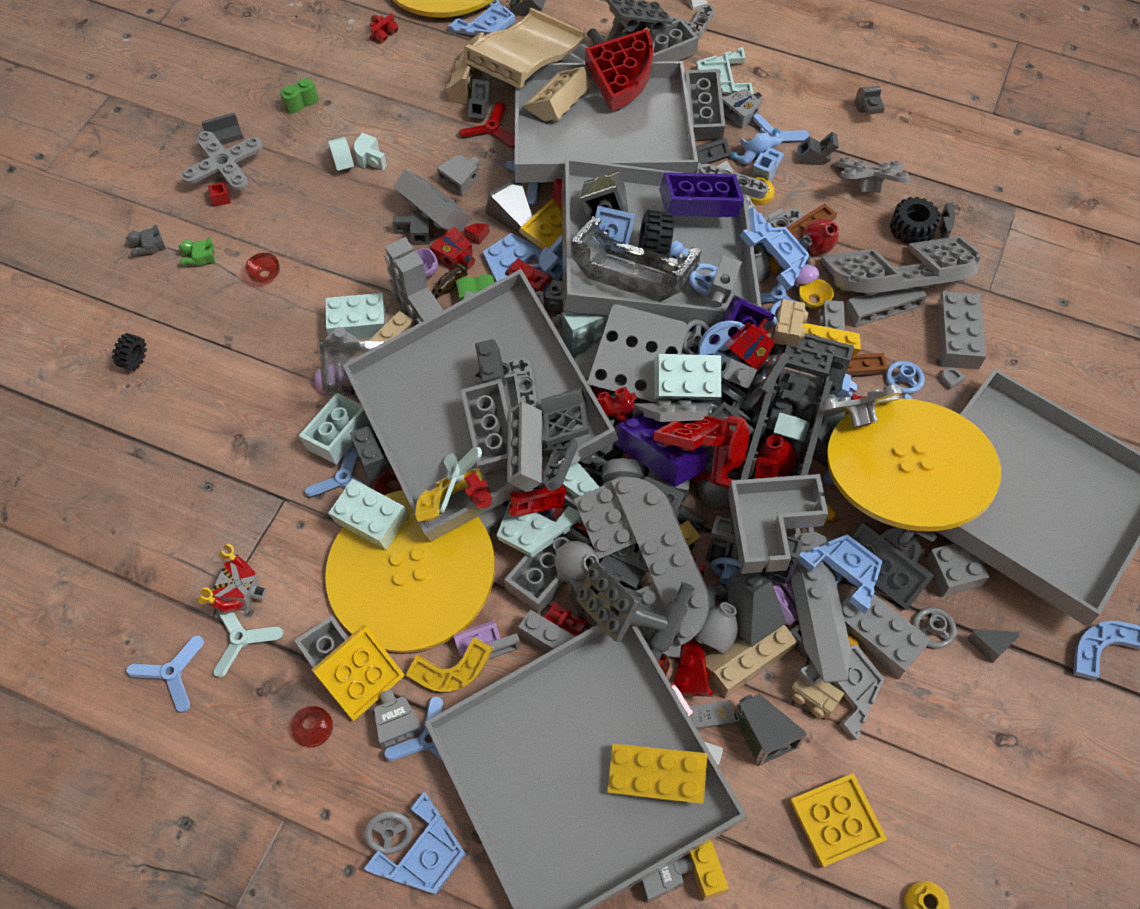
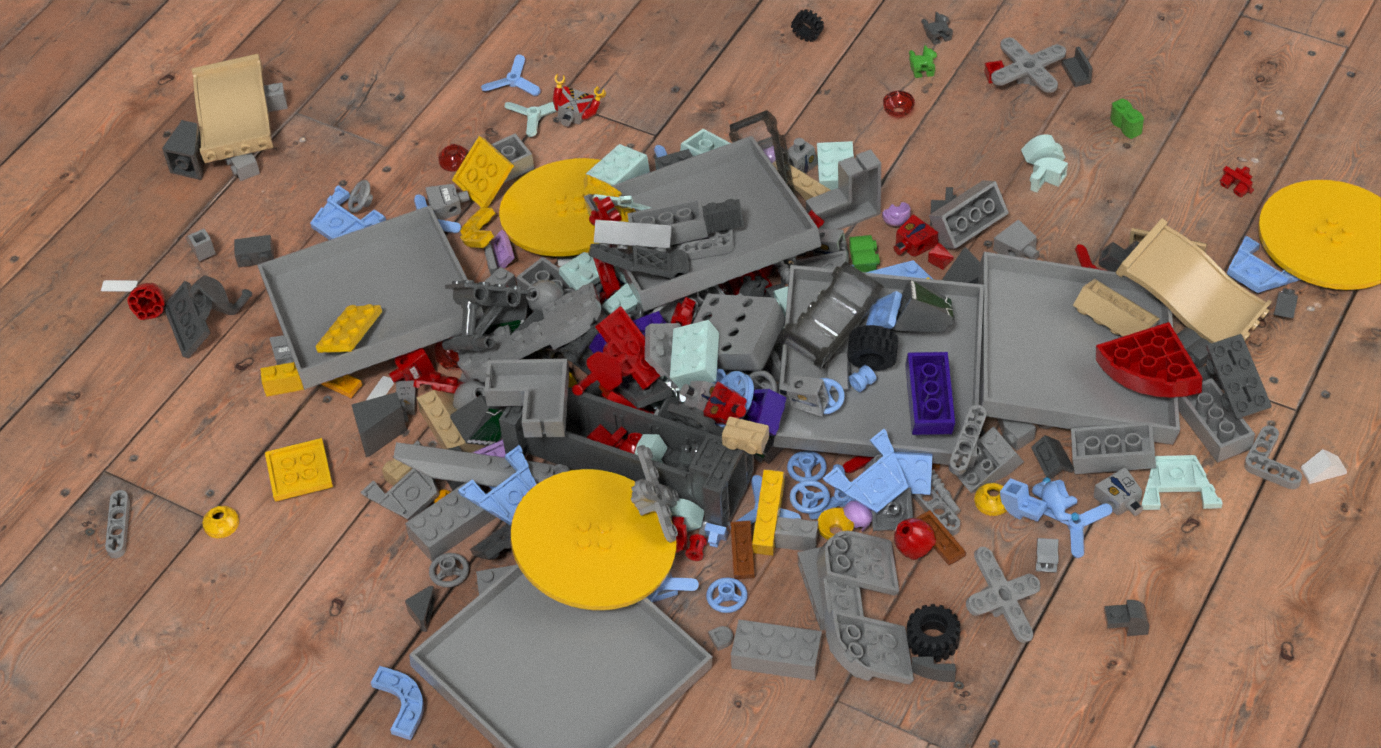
camera: 100 degrees right, 10 degrees down
(448, 280) = (877, 234): dark brown piece -> none

